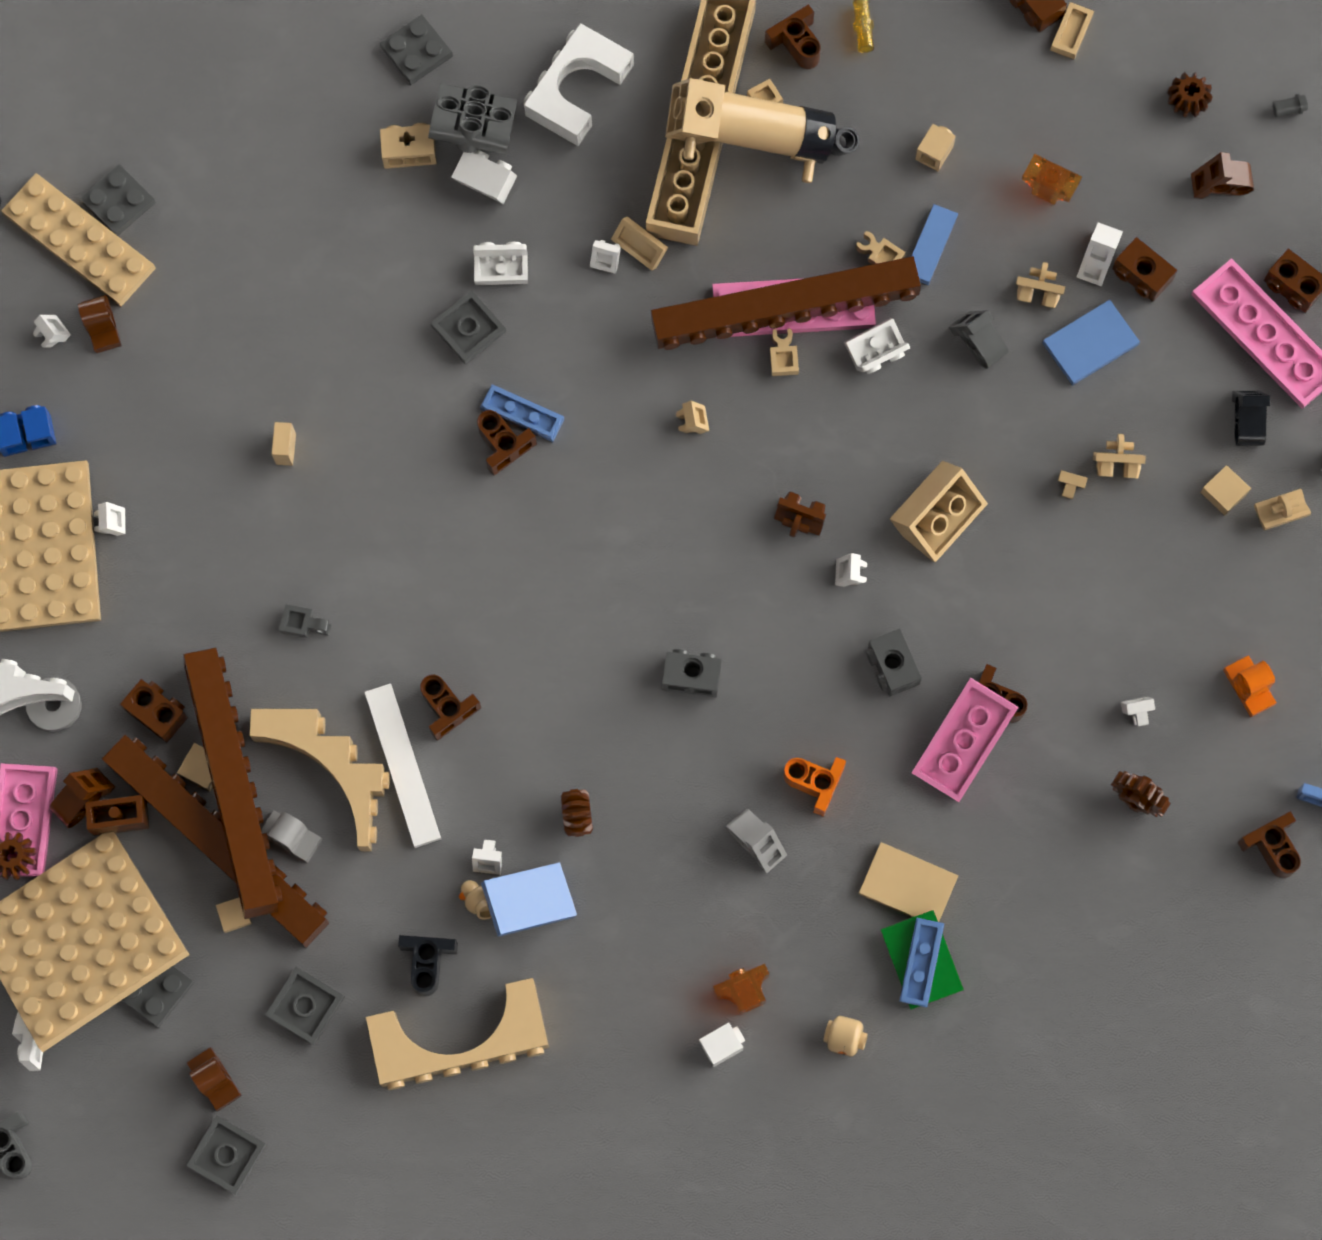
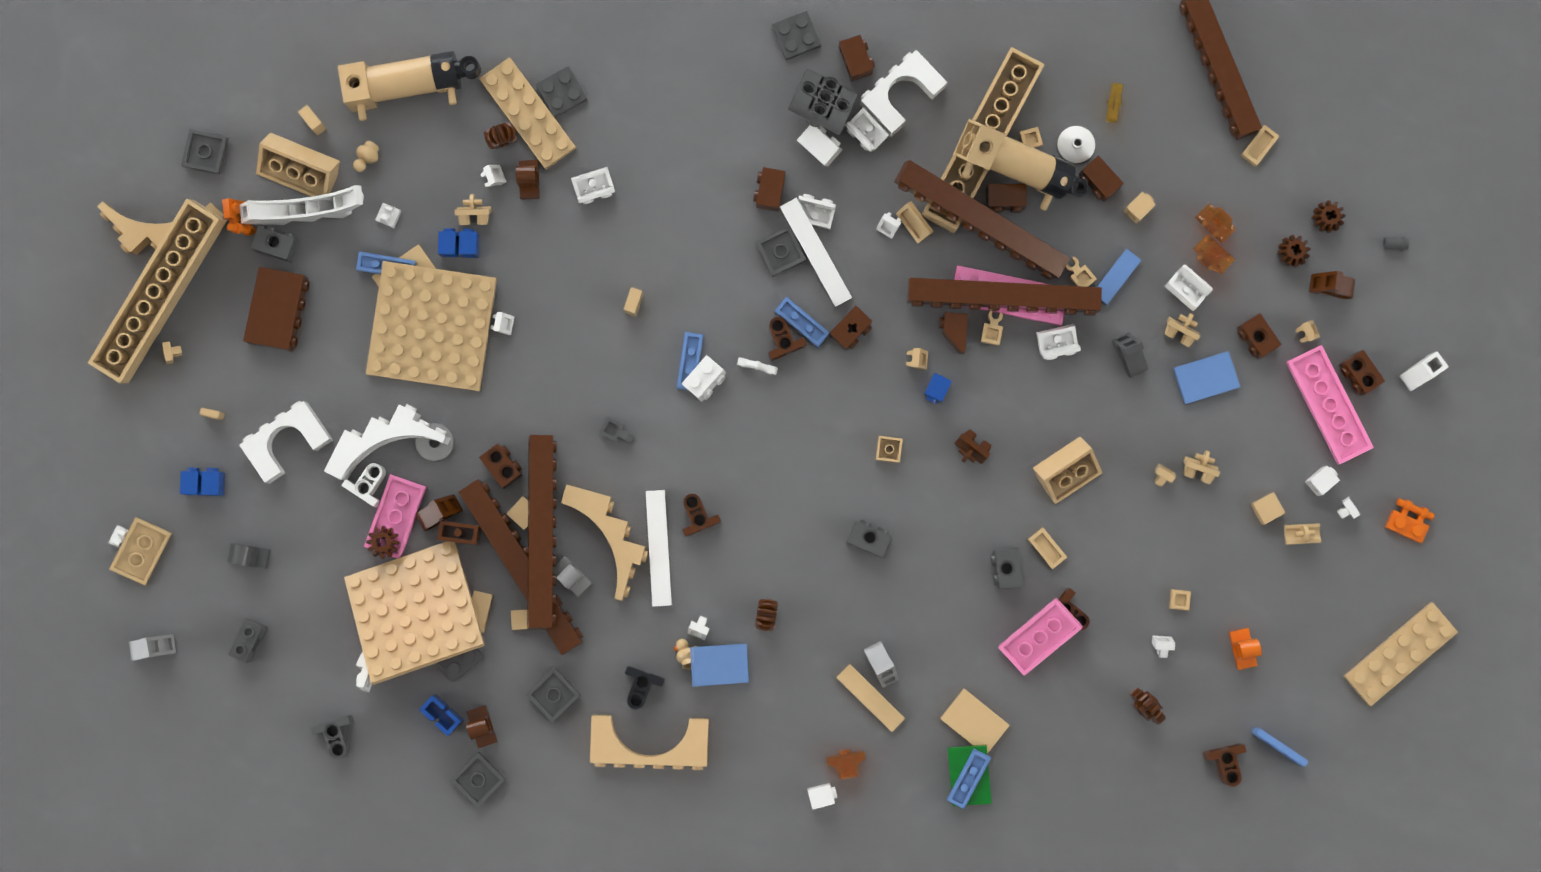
camera: 10 degrees right, 10 degrees up
(22, 389) = (464, 212): none -> tan hips
(47, 274) = (500, 135): none -> reddish brown gear
(152, 1074) = (436, 708): none -> blue piece
(175, 908) = (482, 605): none -> tan tile
(190, 306) = (593, 185): none -> white bracket
(382, 504) = (690, 356): none -> medium blue tile
(397, 154) = (763, 111): tan brick -> none
(408, 519) = (704, 378): none -> white bracket
(433, 250) = (770, 189): none -> reddish brown brick
(460, 485) = (757, 365): none -> white arm
(503, 55) = (856, 58): none -> reddish brown brick
(516, 315) = (815, 252): none -> white tile
(543, 142) = (867, 130): none -> white bracket
(592, 387) = (853, 318): none -> reddish brown brick
(686, 548) = (889, 449): none -> tan piece
(727, 211) = (981, 219): none -> reddish brown brick
(730, 450) = (937, 388): none -> blue brick
(732, 367) = (955, 329): none -> reddish brown slope
(753, 180) = (1006, 197): none -> reddish brown brick
(753, 891) = (870, 697): none -> tan tile
(798, 43) = (1065, 104): reddish brown tile -> none
(811, 773) = (929, 631): orange tile -> none
(833, 101) = (1069, 150): none -> white dish
(845, 1036) = (904, 812): tan head -> none
(848, 570) = (994, 495): white tile -> none
(874, 124) = (1101, 179): none -> reddish brown brick
(941, 623) = (1047, 548): none -> tan tile
(1031, 231) = (1188, 287): none -> white bracket
(1043, 138) = (1216, 222): none -> clear orange brick
(1099, 254) = (1232, 316): white tile -> none
(1143, 644) = (1179, 599): none -> tan tile
(1167, 149) = (1287, 252): none -> reddish brown gear
(1211, 244) = (1310, 331): none -> tan tile
(1250, 417) = (1300, 461): black tile -> none
(1288, 433) = (1322, 480): none -> white brick

